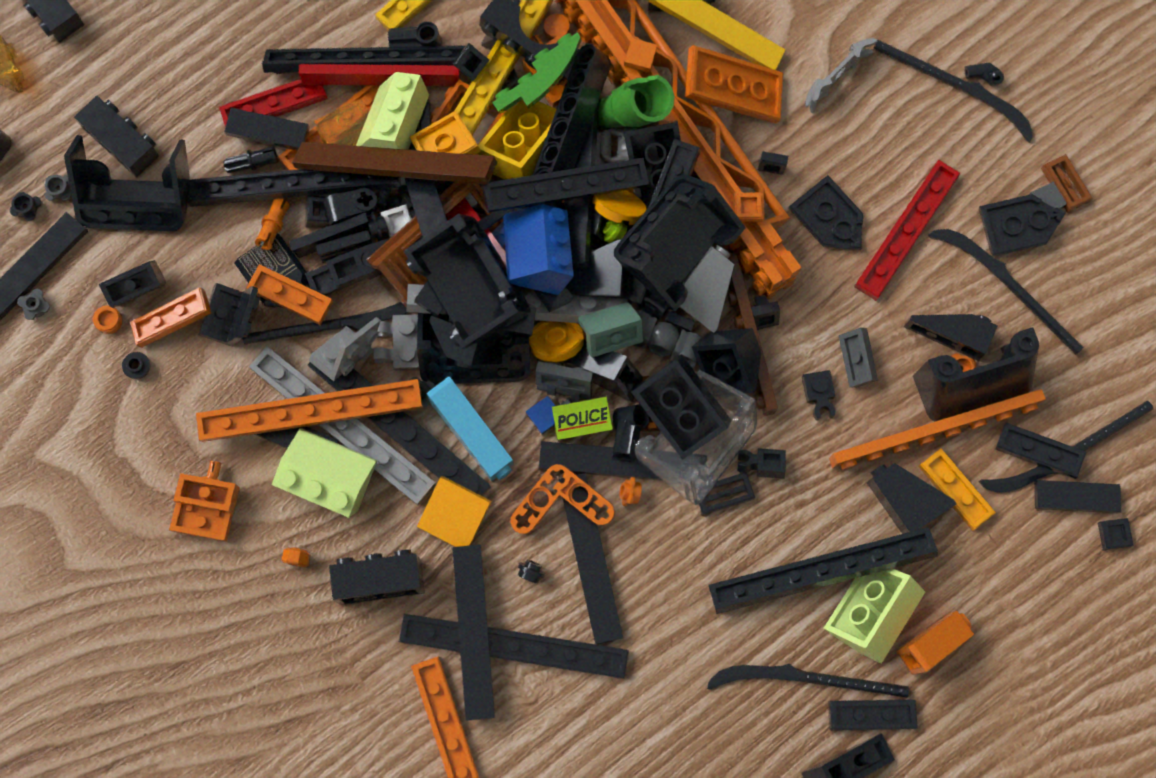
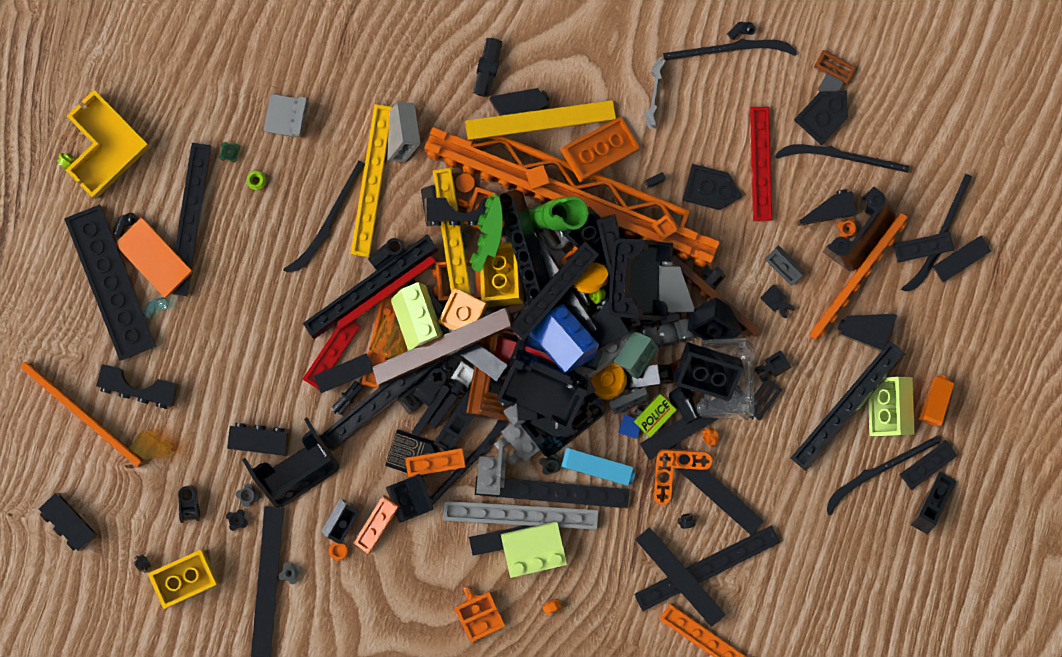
camera: 35 degrees left, 10 degrees up
(139, 372) = (381, 560): black plate -> none
(272, 224) = (391, 428): orange pin -> none
(309, 410) = (499, 521): orange plate -> none
(376, 577) = (607, 586): black brick -> none
(454, 513) = (621, 519): light orange tile -> none
(470, 62) = (438, 249): black slope -> none
(953, 483) = (891, 303): light orange tile -> none
(1115, 534) = (996, 265): black tile -> none

